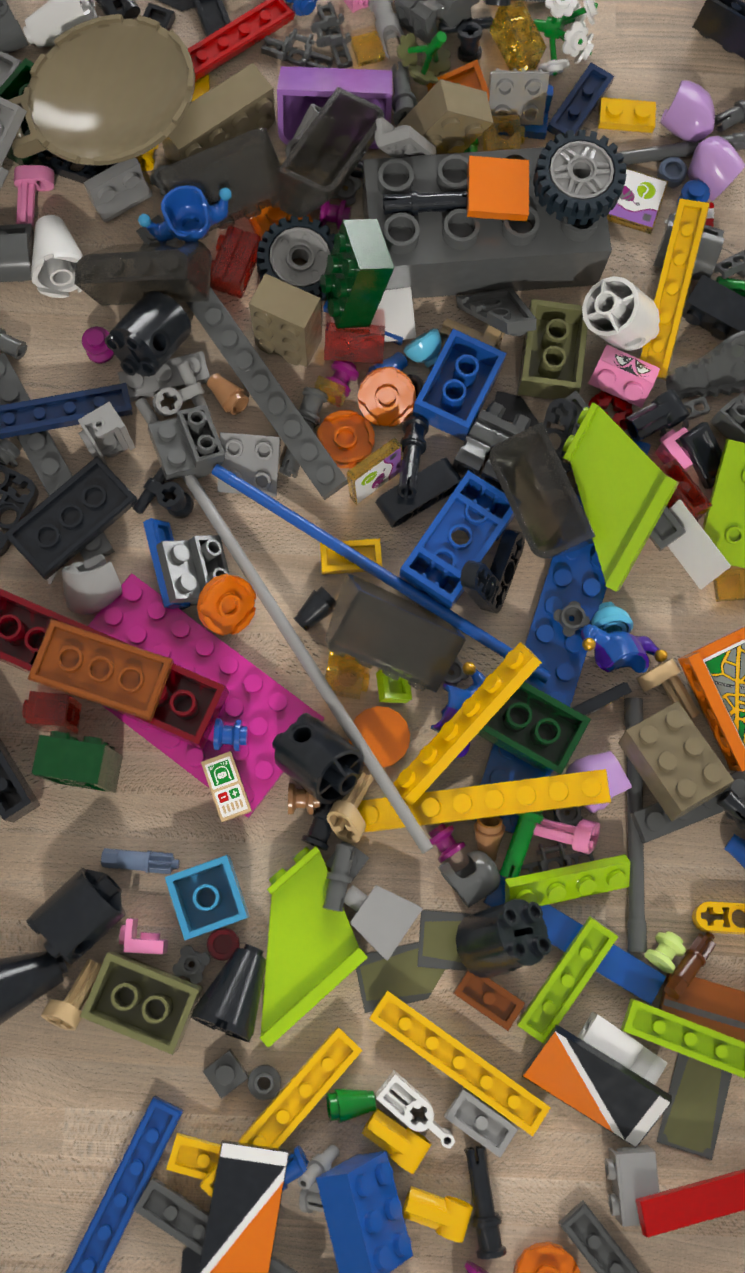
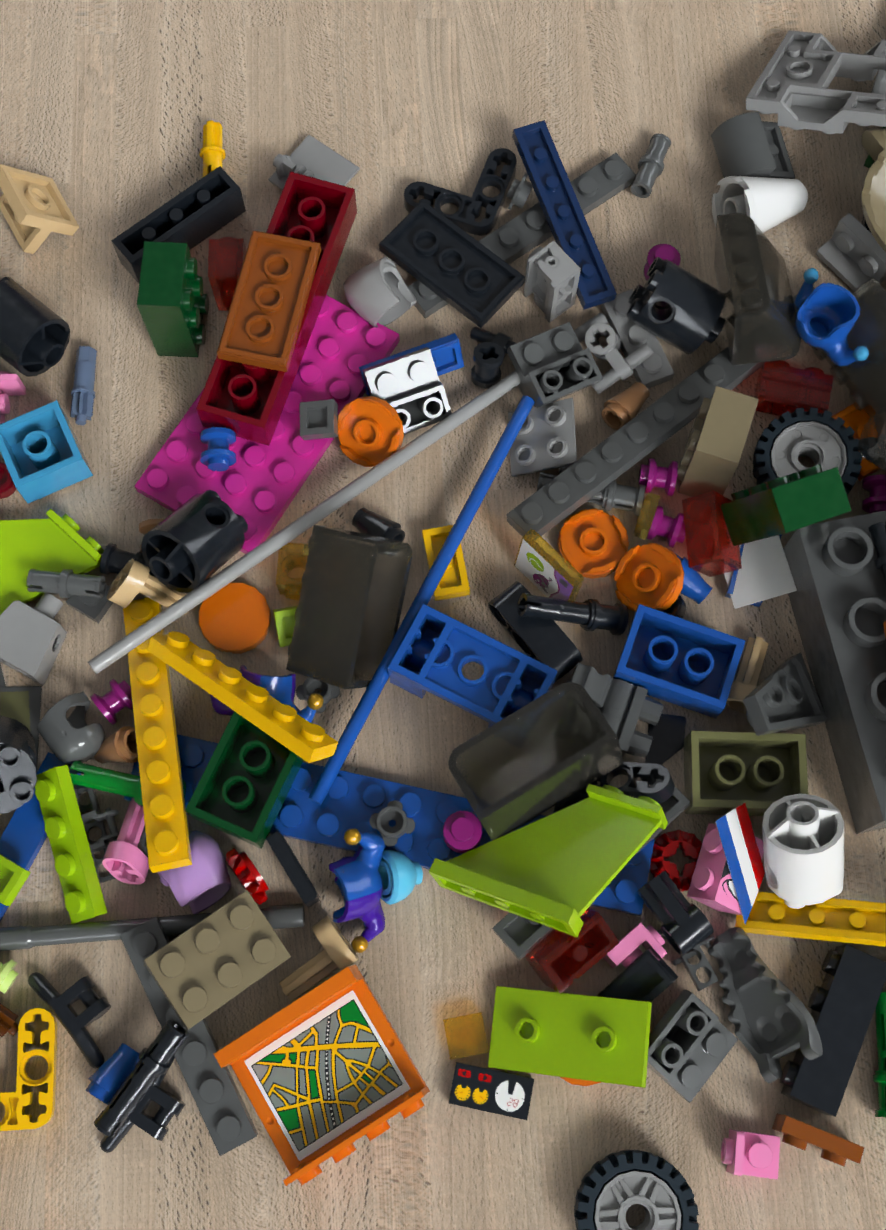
camera: 90 degrees right, 5 degrees down
(28, 180) = (847, 167): bright pink piece -> none
(212, 645) = (318, 419): none -> dark grey plate
(226, 786) = (162, 455): tile -> none
(295, 380) = (659, 477): none -> magenta wheel
(425, 348) = (723, 617): medium azure brick -> none
(491, 585) = (418, 726): black beam -> none
(584, 564) = (462, 831): none -> magenta wheel
(604, 737) = (247, 875): none -> red gear
(620, 360) = (741, 856): none -> sticker
(696, 549) = (502, 977): white sticker -> none
(697, 895) = (71, 1021): none -> black piece

